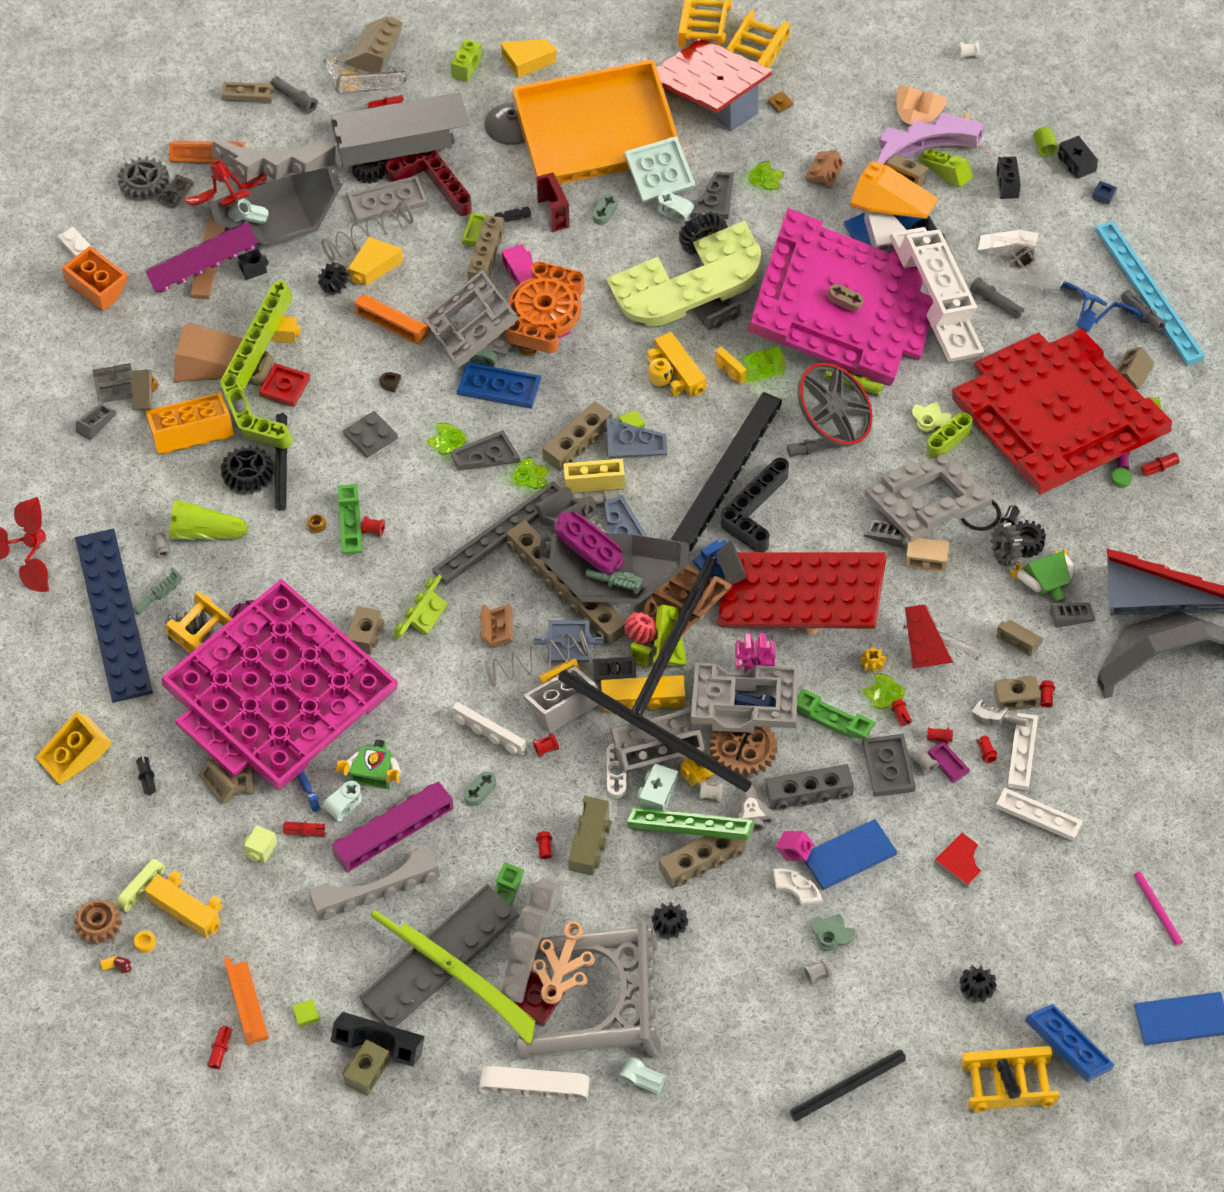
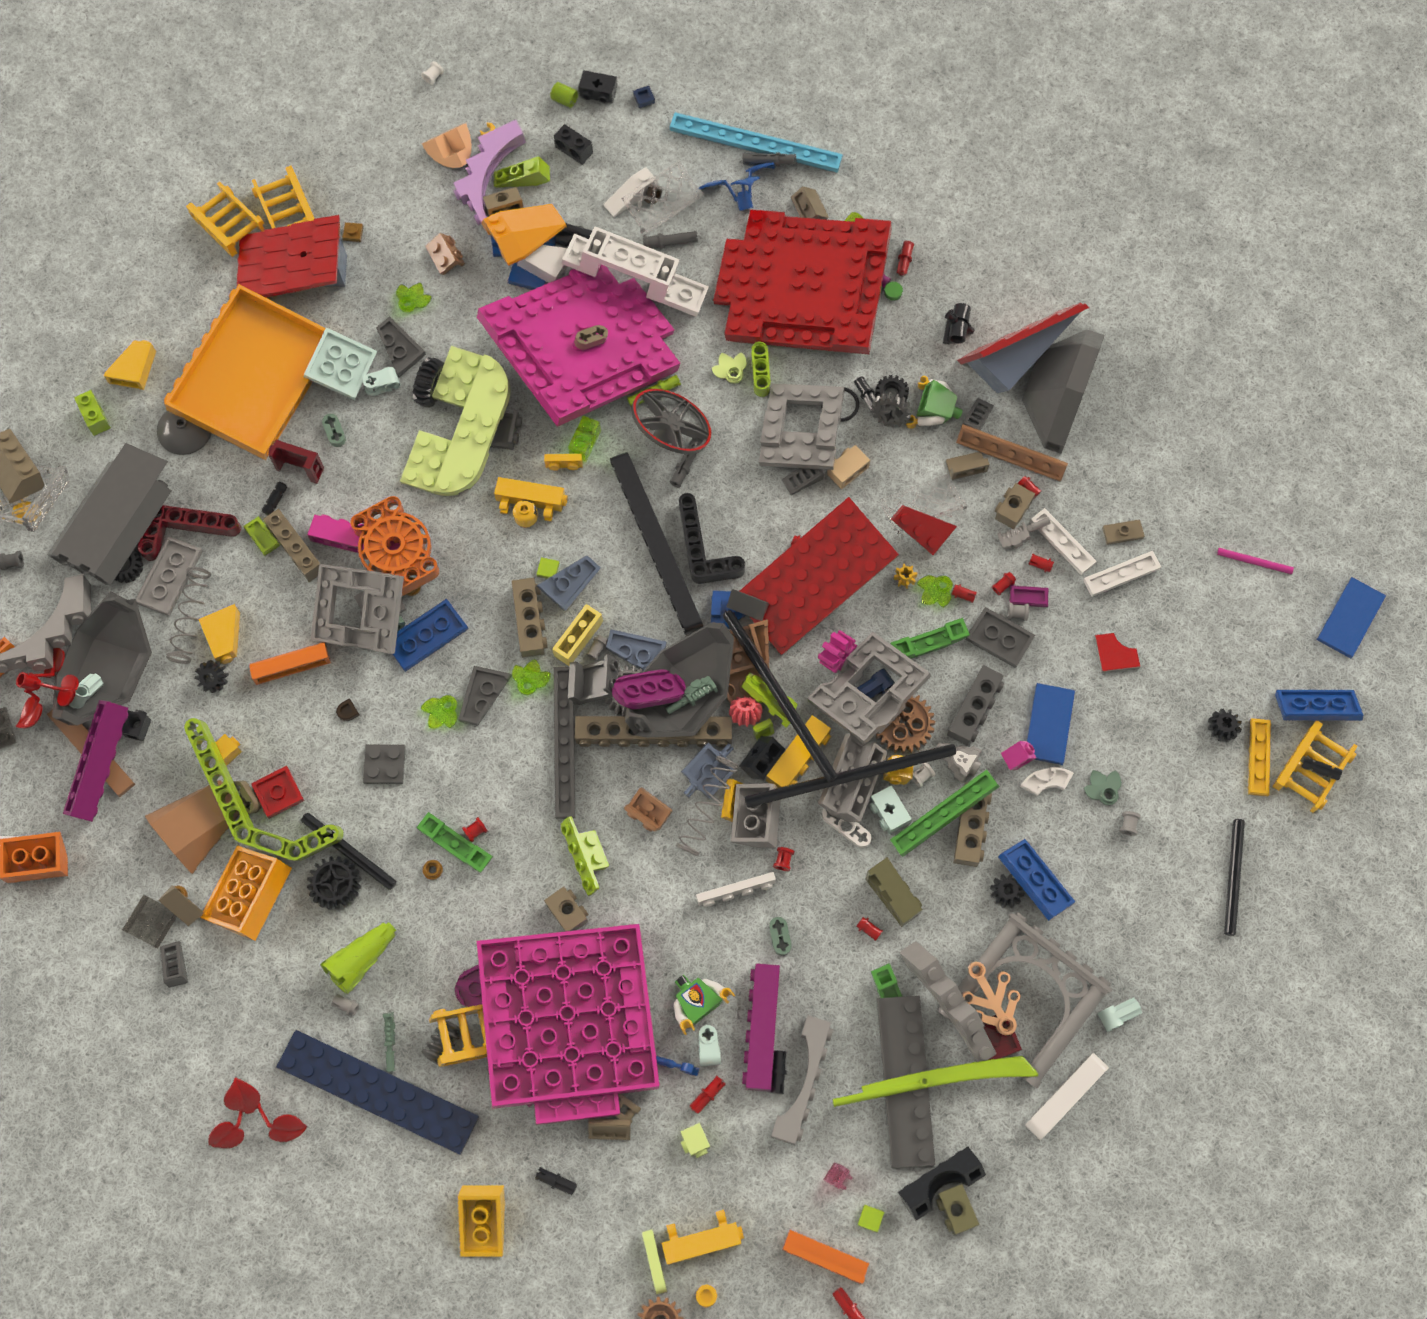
camera: 50 degrees left, 15 degrees up
(318, 963) = (837, 1175): none -> clear pink tile
(367, 864) = (778, 1072): none -> black pin
(386, 101) = (74, 502): red axle -> none
(699, 933) = (1036, 879): none -> blue tile
(977, 1032) = (1259, 757): none -> yellow tile
(1064, 659) = (1011, 452): none -> medium nougat tile
(1079, 791) = (1123, 532): none -> dark tan plate
(1139, 539) = (958, 324): none -> black pin

